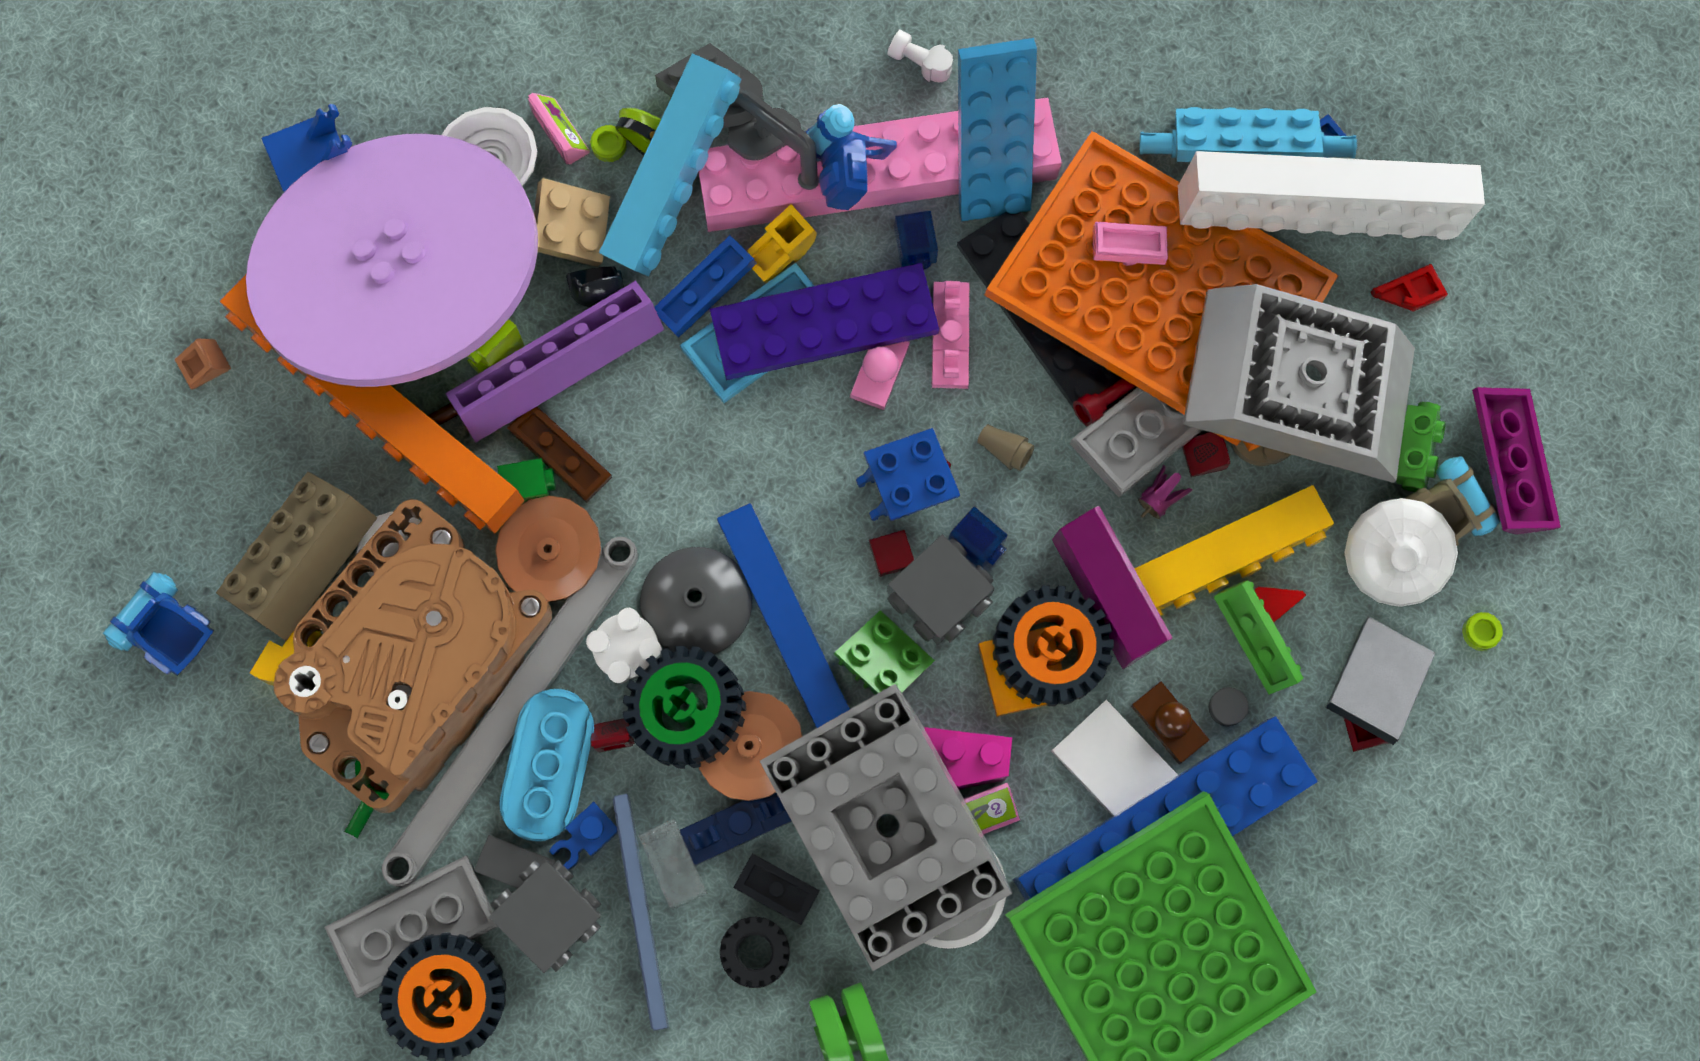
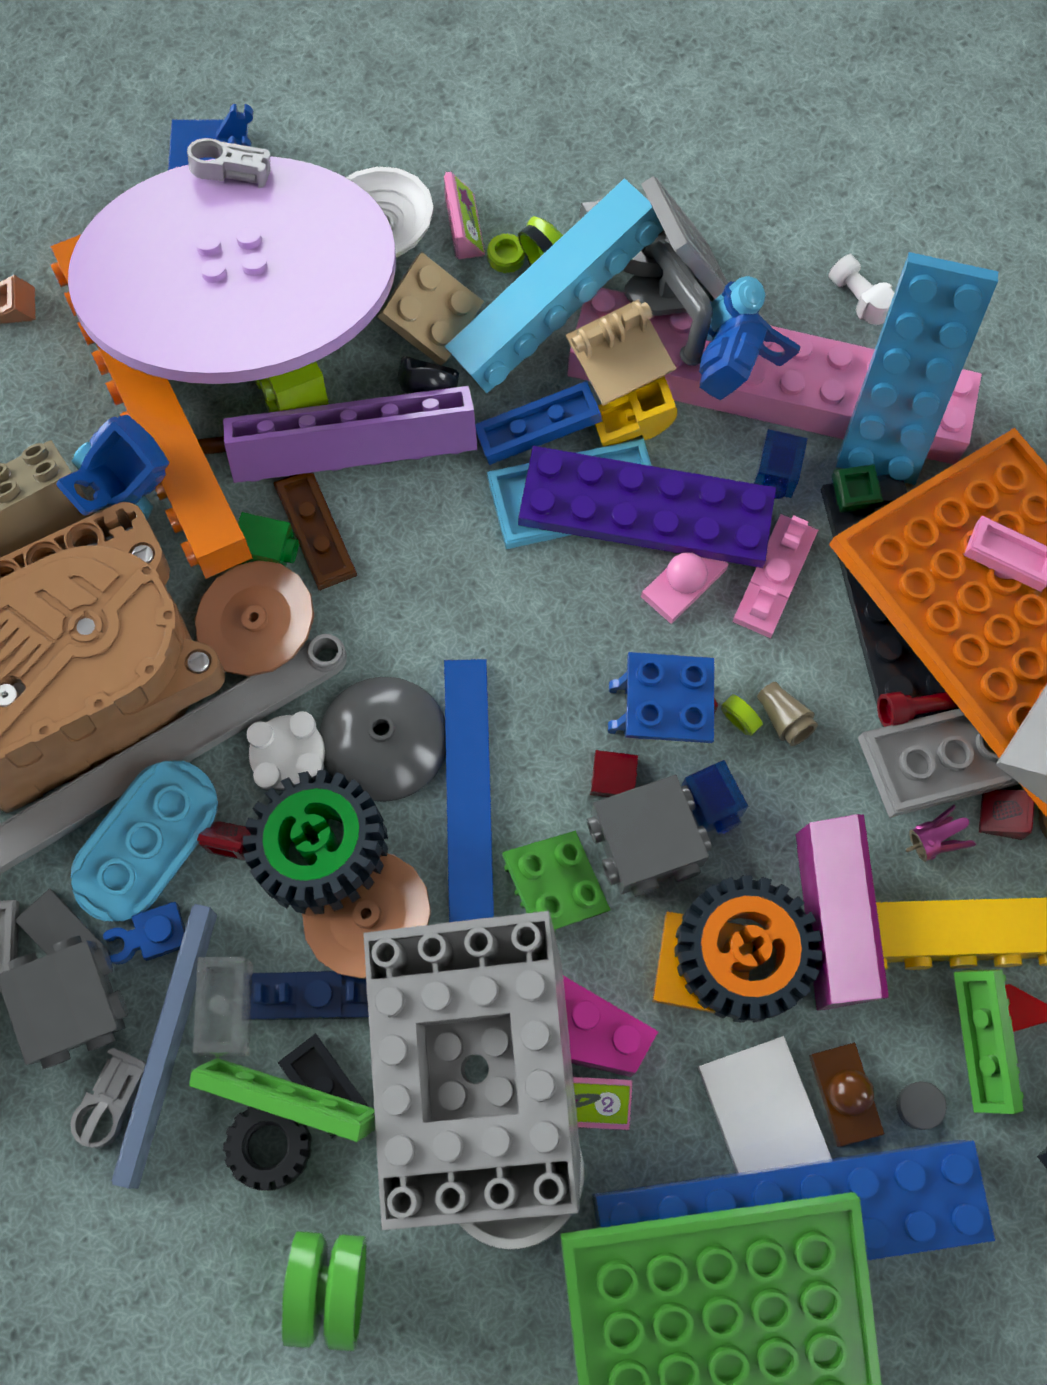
camera: 25 degrees right, 5 degrees down
(345, 162) = (231, 161): none -> light grey piece
(383, 471) = (120, 466): none -> blue piece
(616, 964) = (112, 1091): none -> light grey piece
(750, 201) = (621, 351): none -> tan hinge
(753, 910) = (284, 1099): none -> bright green tile
(766, 83) = (685, 237): none -> light grey tile
(971, 463) = (741, 715): none -> lime tile
(987, 236) = (857, 488): none -> dark green tile

